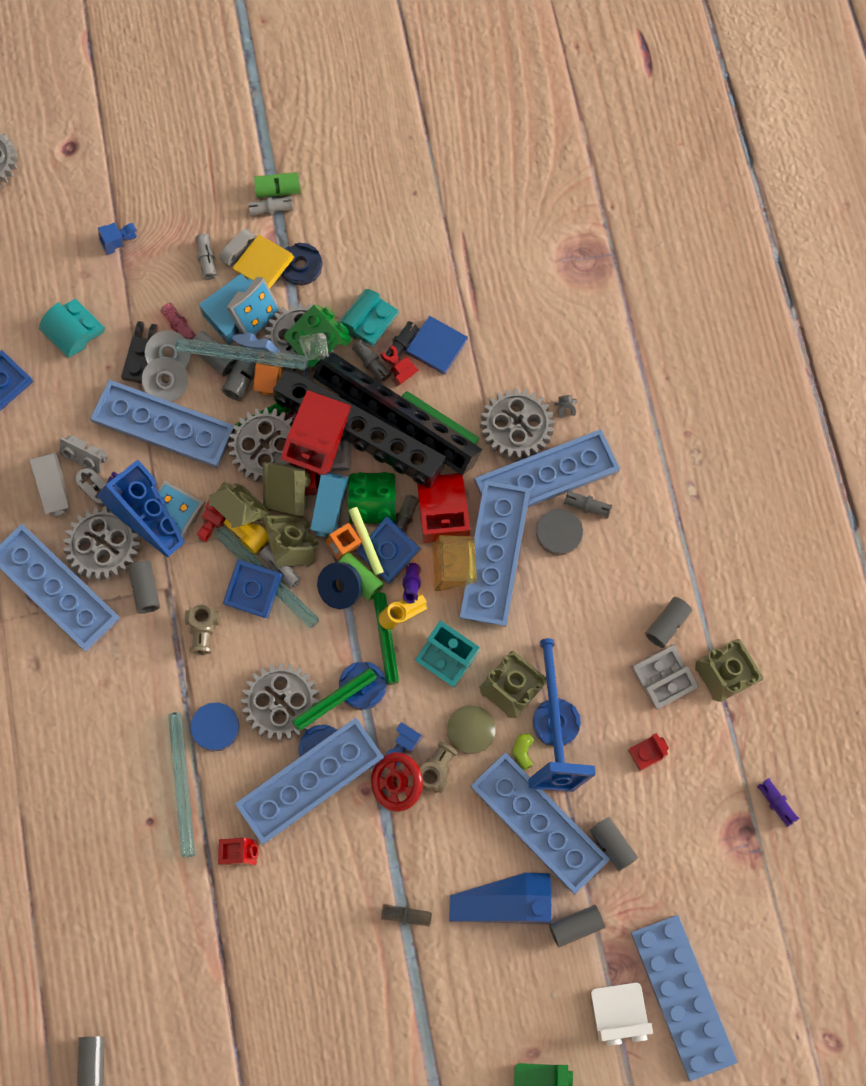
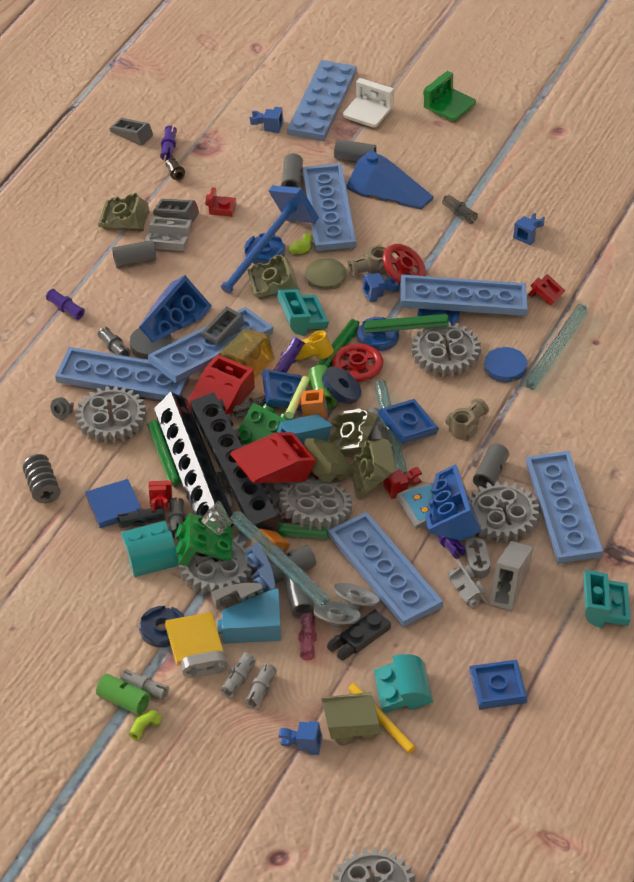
camera: 140 degrees left, 25 degrees down
(70, 294) = (388, 724): none -> yellow bar
(91, 273) = (351, 717): none -> olive slope
(181, 258) = (260, 686): none -> light grey pin
(245, 179) = (142, 721): none -> lime arm
(315, 929) = (526, 228): none -> blue piece
(369, 642) = (358, 361): none -> red plate
(496, 587) = (225, 315): none -> dark grey slope
(509, 320) = (41, 478): none -> dark grey piece
(567, 579) = (174, 309): none -> blue wedge
(671, 719) = (177, 209): none -> dark grey slope
(673, 519) = (65, 304): none -> dark purple pin
(706, 914) = (271, 119): none -> blue piece
(737, 769) = (176, 171): none -> dark brown pin
(819, 800) = (134, 130): none -> dark grey slope

